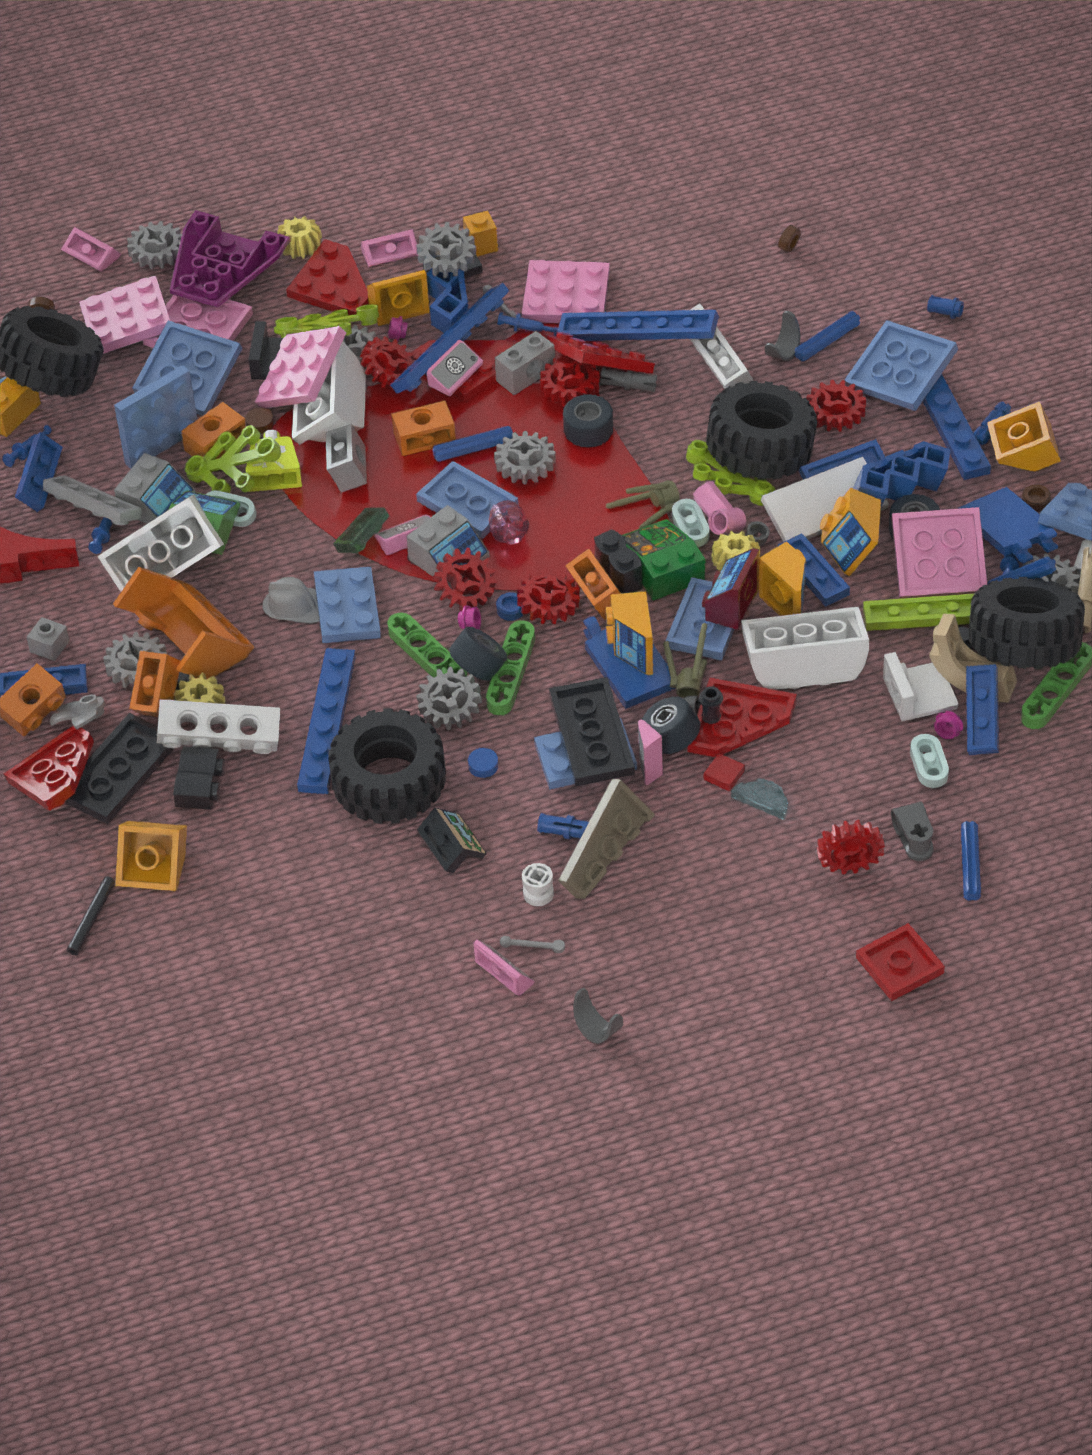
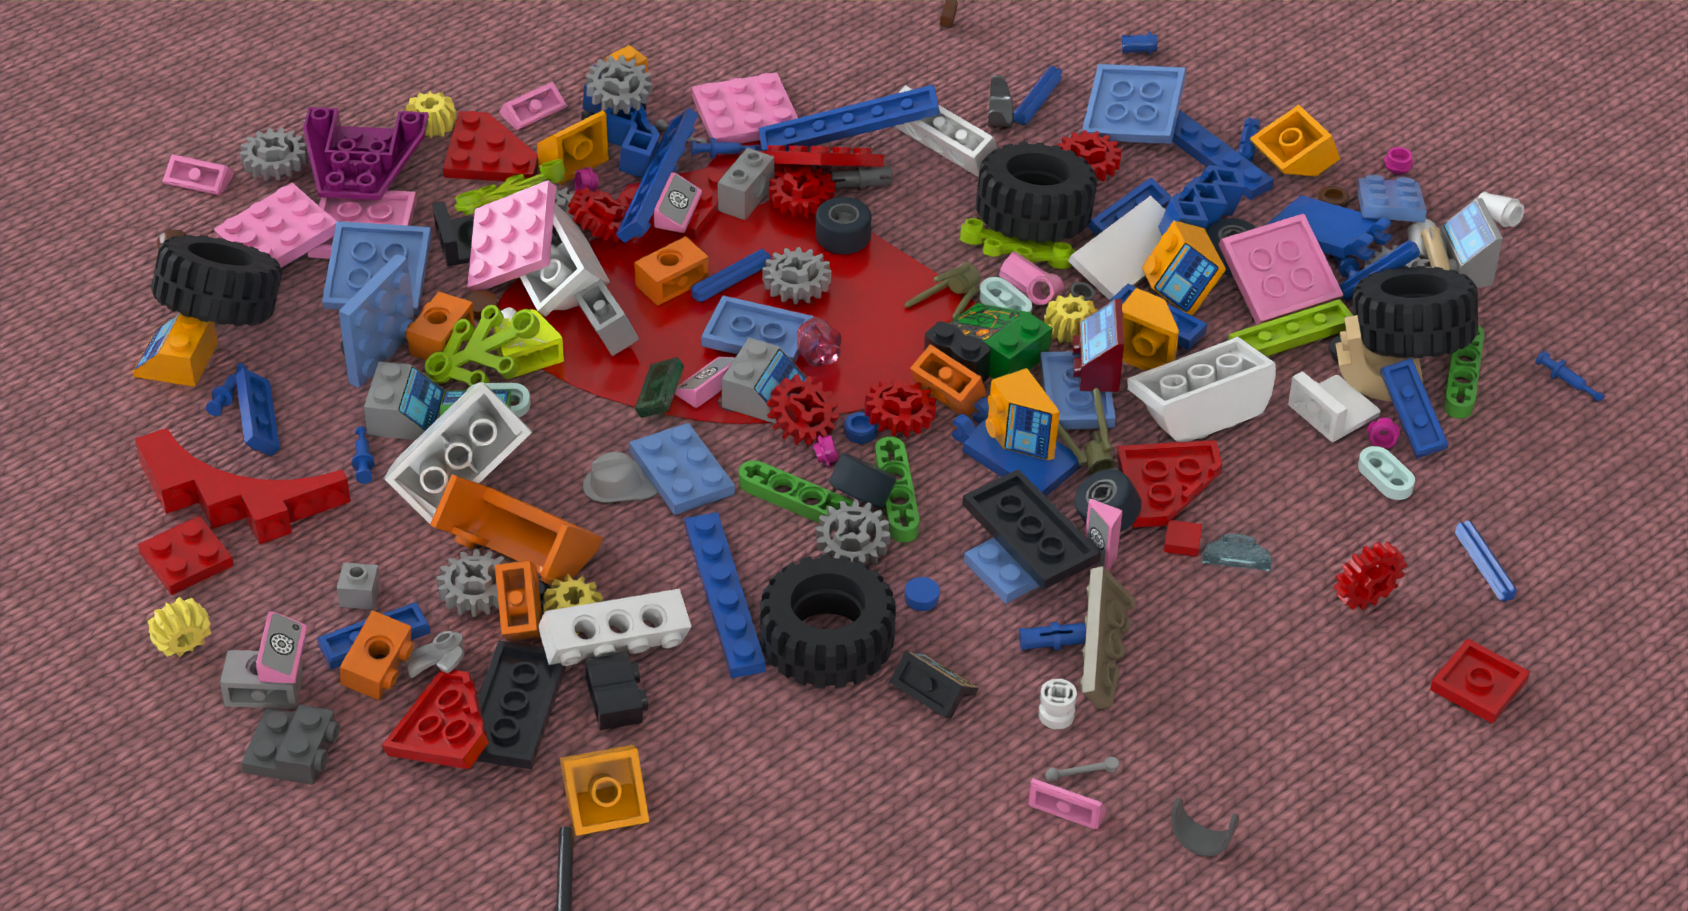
camera: 25 degrees left, 5 degrees down
(92, 499) = (328, 425): light grey plate -> none
(711, 700) = (1144, 464): black pin -> none
(914, 830) = (1416, 543): dark grey piece -> none

